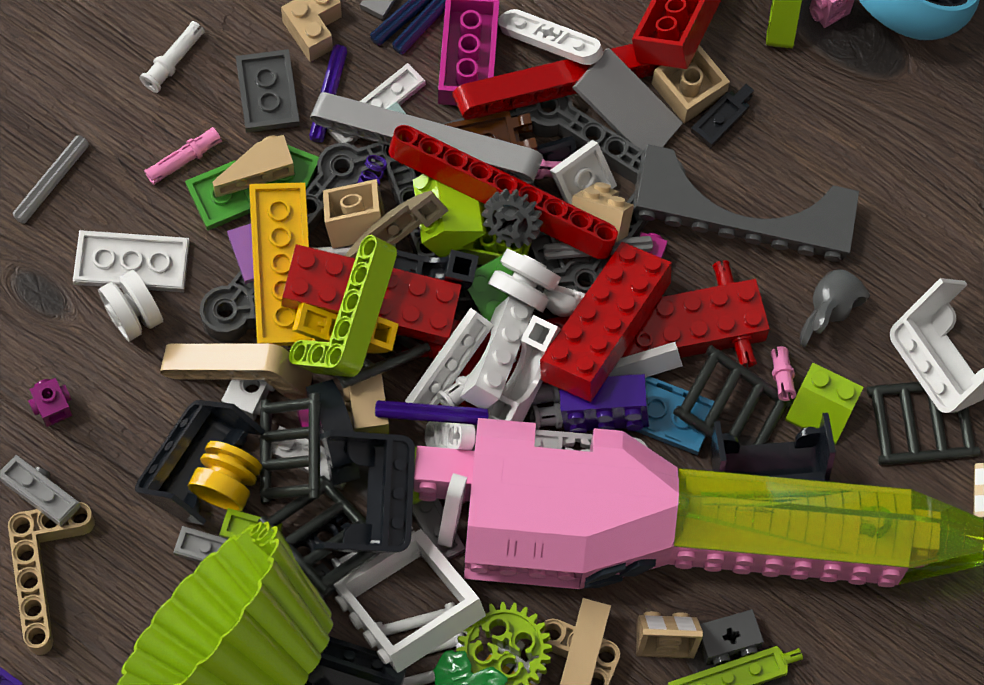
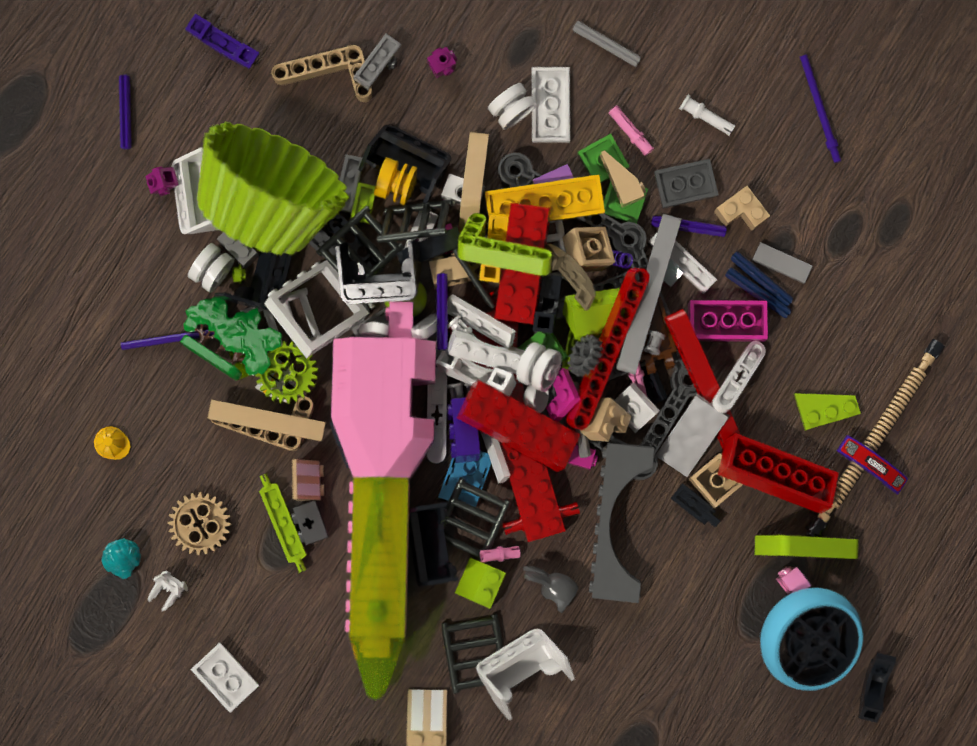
camera: 85 degrees right, 15 degrees up
(498, 131) = (654, 342): none -> light grey bush
(571, 256) = (566, 396): none -> dark pink plate

